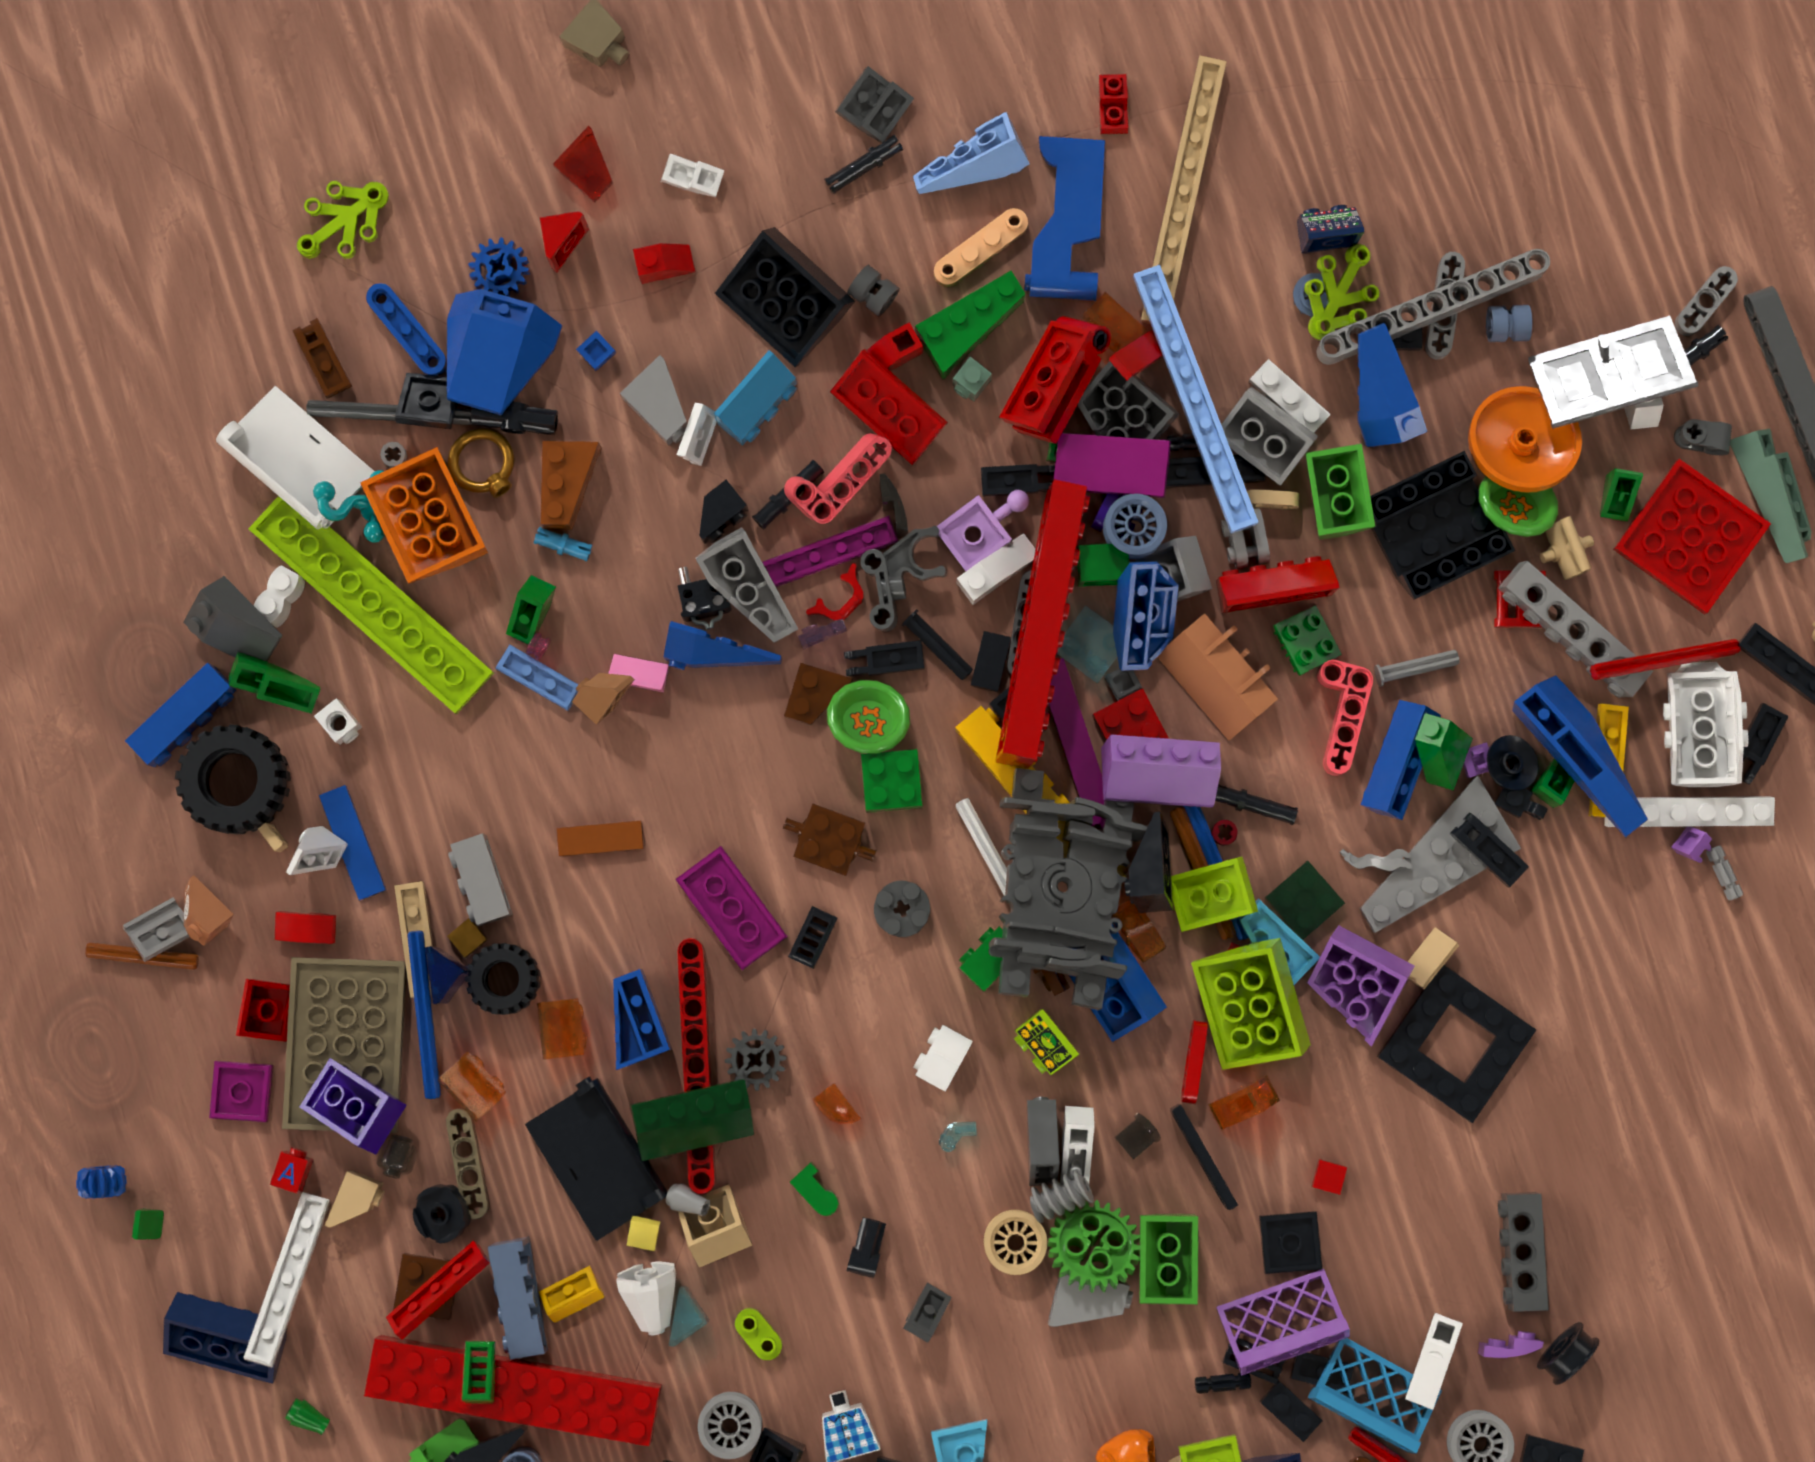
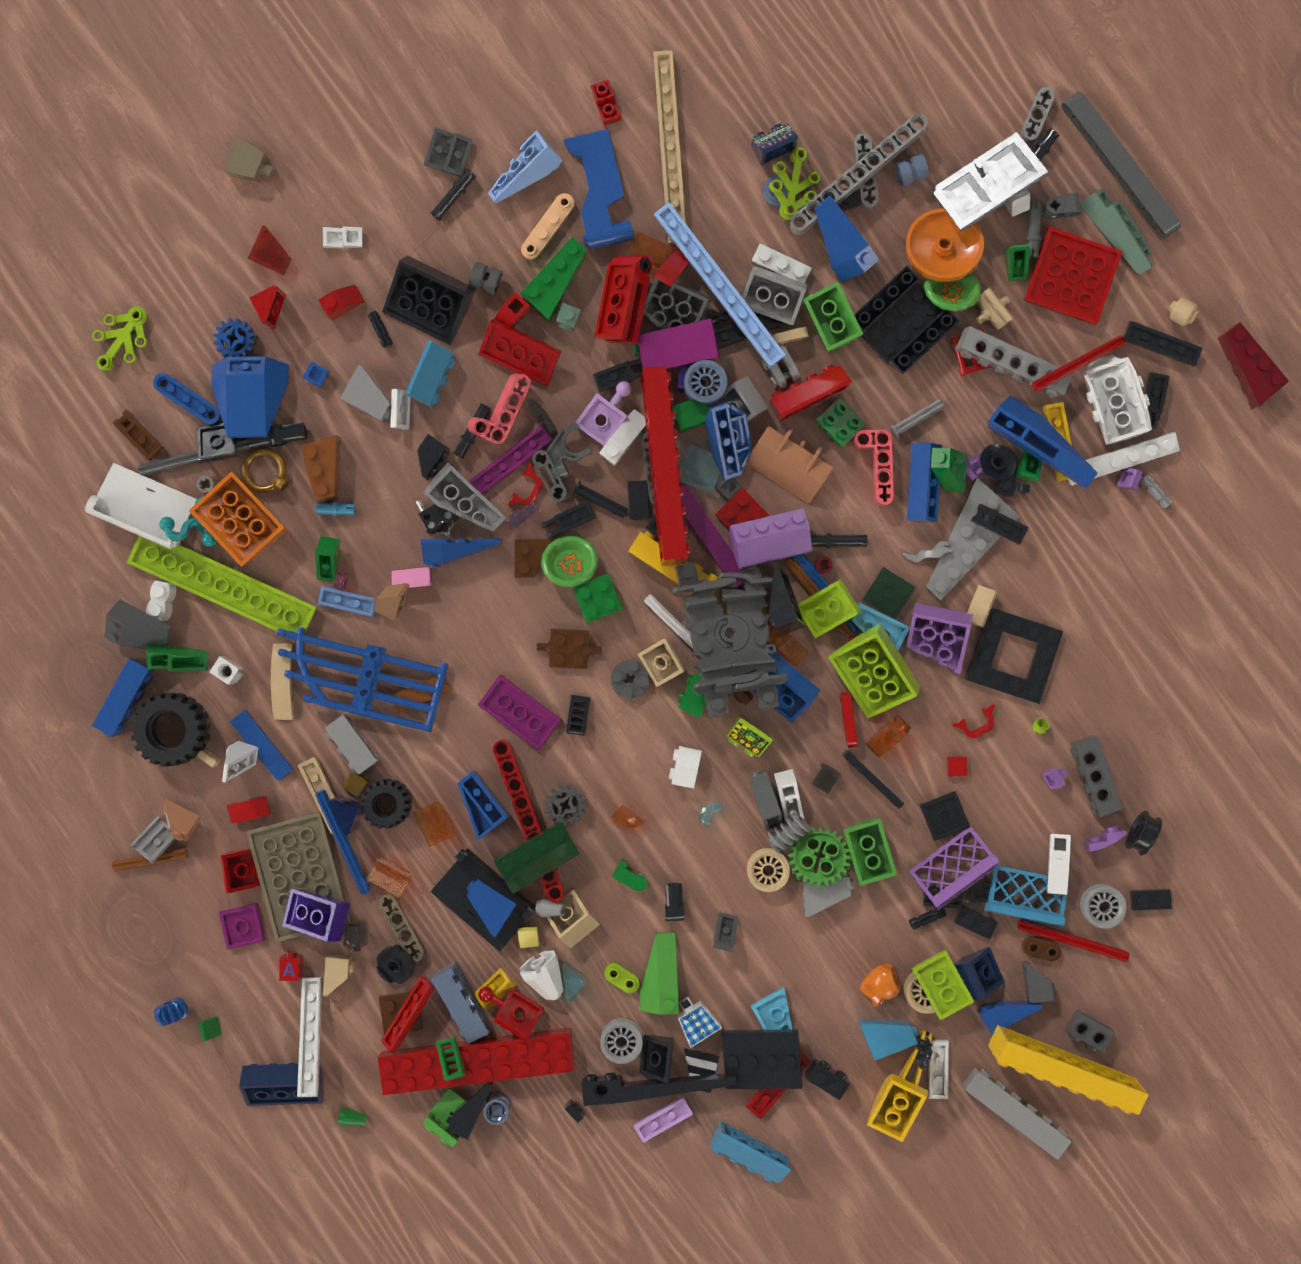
camera: 15 degrees left, 5 degrees up
(410, 761) = (280, 685): none -> tan slope
(531, 798) = (367, 681): none -> blue piece
(576, 1335) = (514, 1002): none -> red plate
(604, 1169) = (490, 905): none -> blue slope
(704, 316) = (380, 329): none -> black axle
(812, 1356) = (660, 981): none -> bright green wedge
(954, 898) = (661, 662): none -> tan slope
(1378, 1136) = (982, 730): none -> red helmet
(1463, 1235) = (1054, 777): none -> medium lavender tile
(1465, 1155) = (1040, 726): none -> lime hinge
(1653, 466) = (1034, 228): none -> dark grey pin

